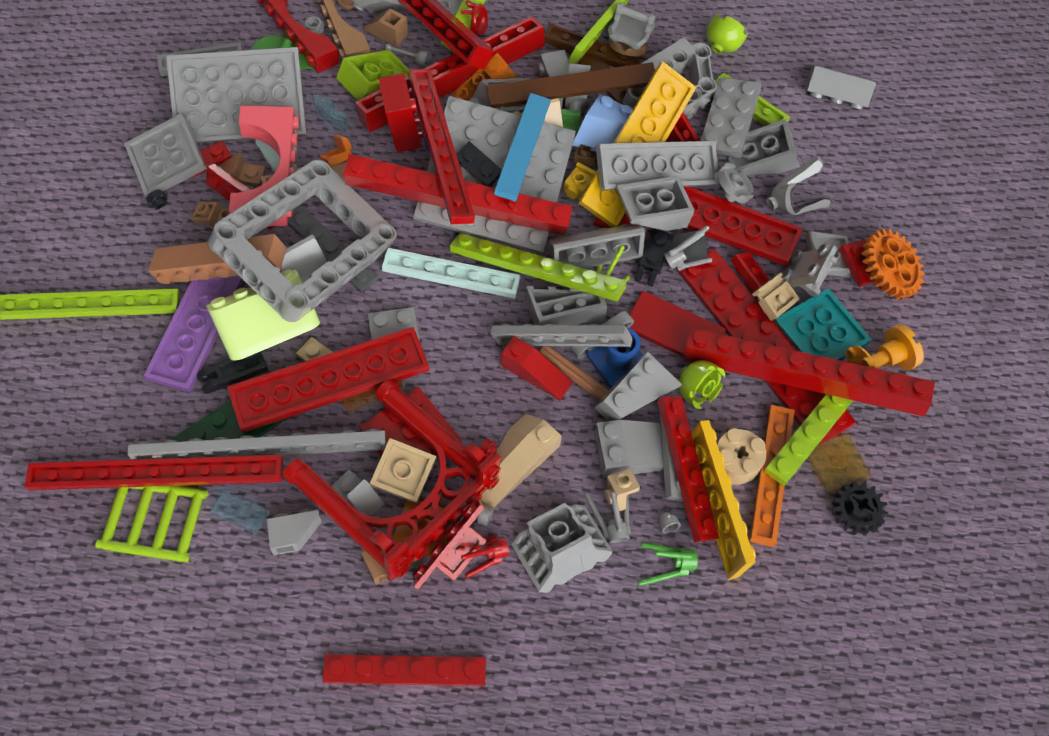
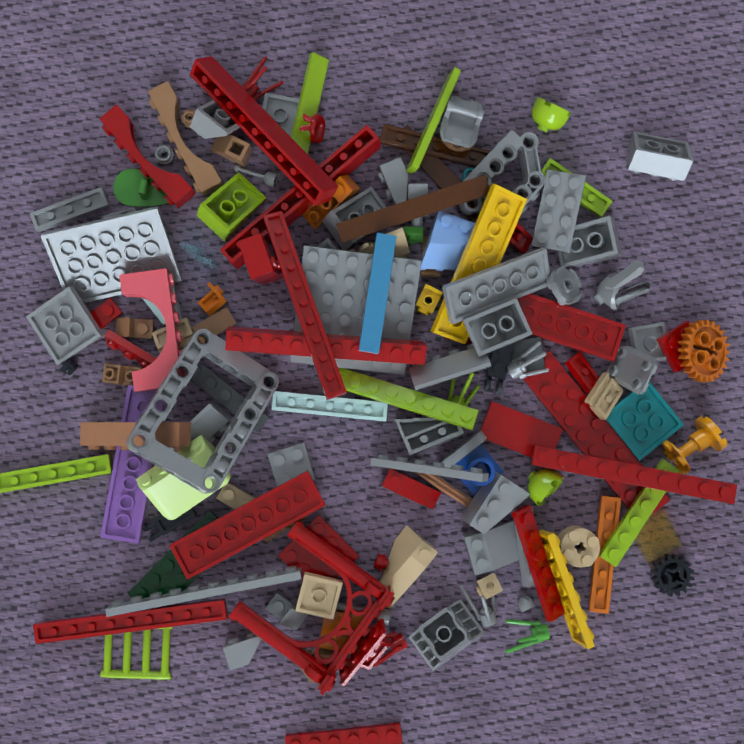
camera: 10 degrees left, 25 degrees up
(240, 512) = (201, 636): clear light blue slope -> none
(479, 165) = (341, 312): black hinge -> none

